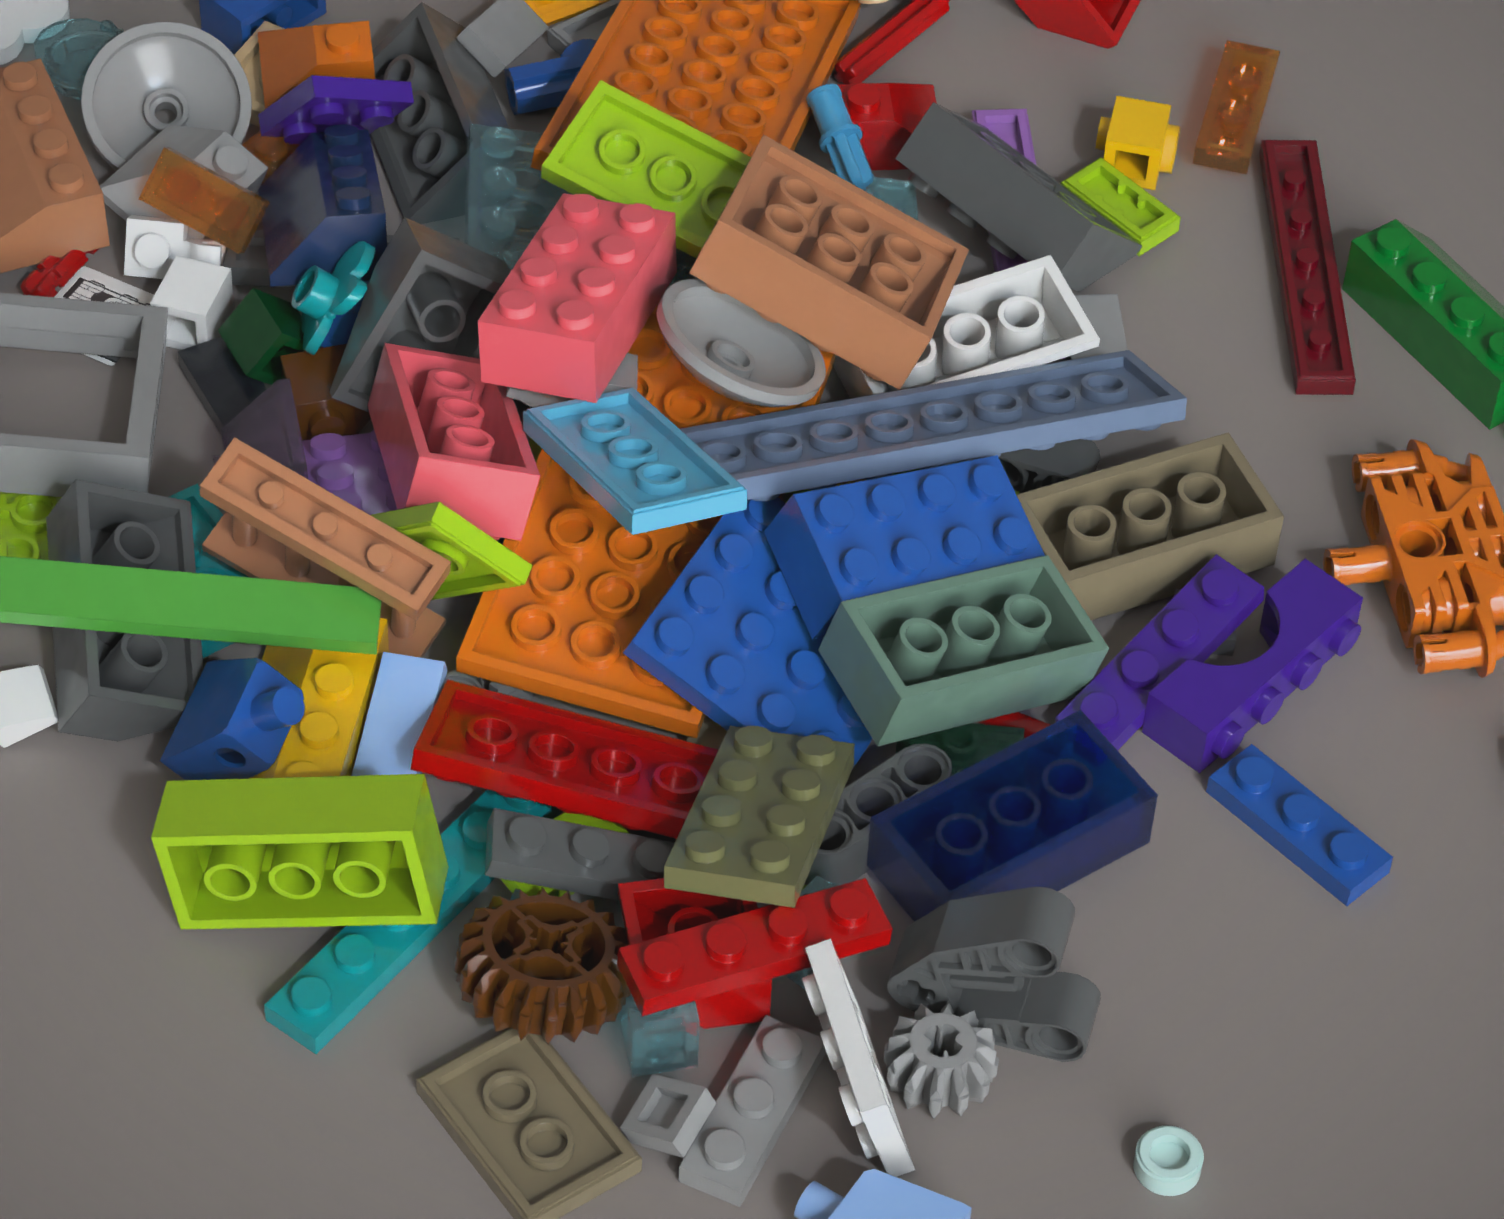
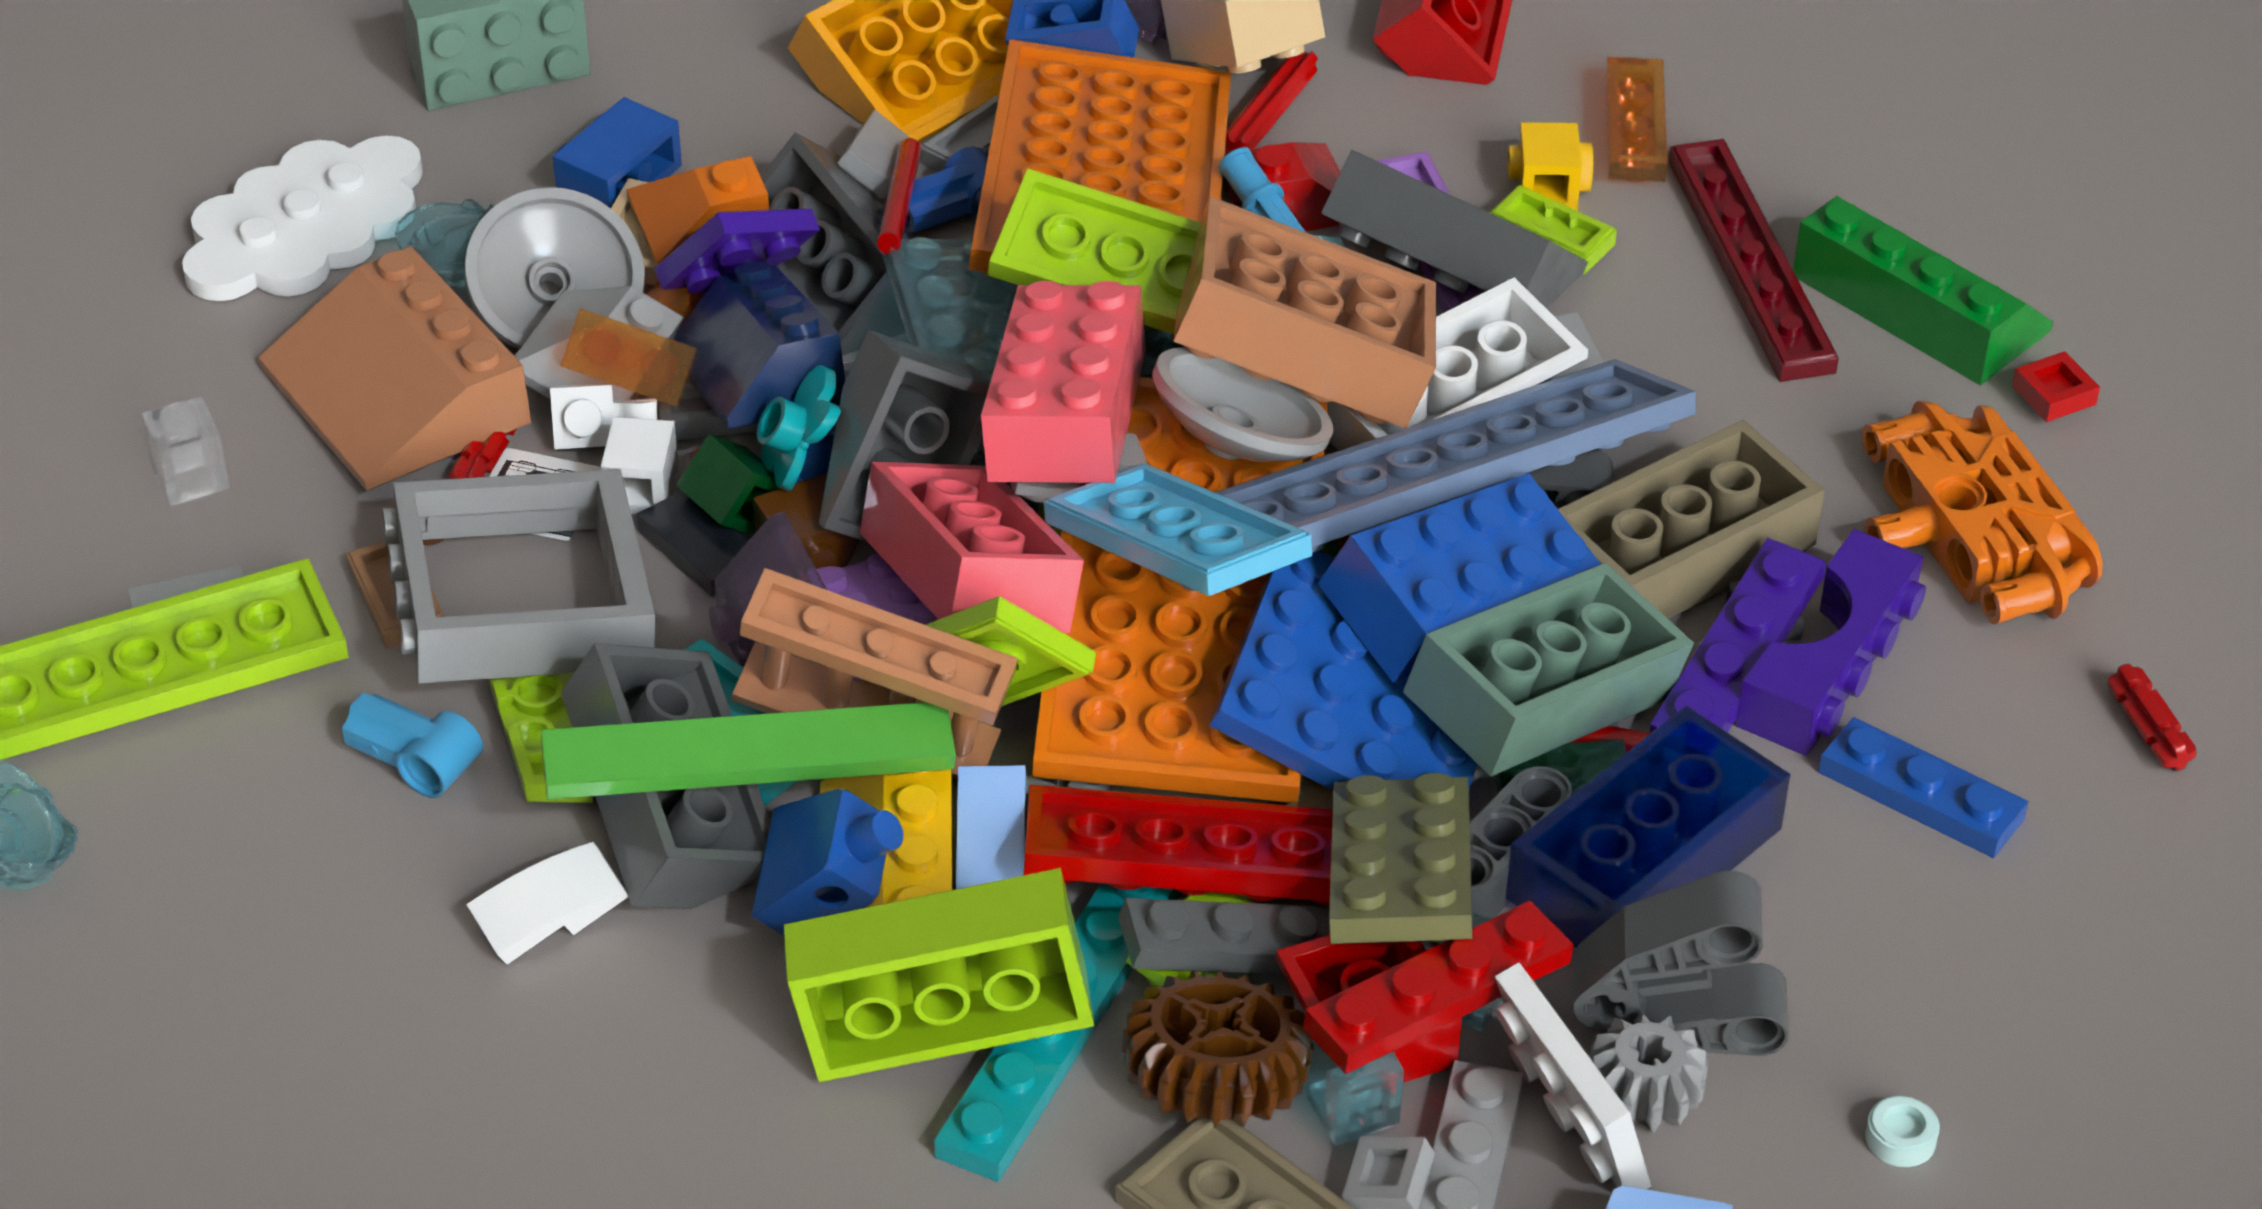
camera: 10 degrees left, 5 degrees down
(501, 79) = (899, 195): none -> red bar

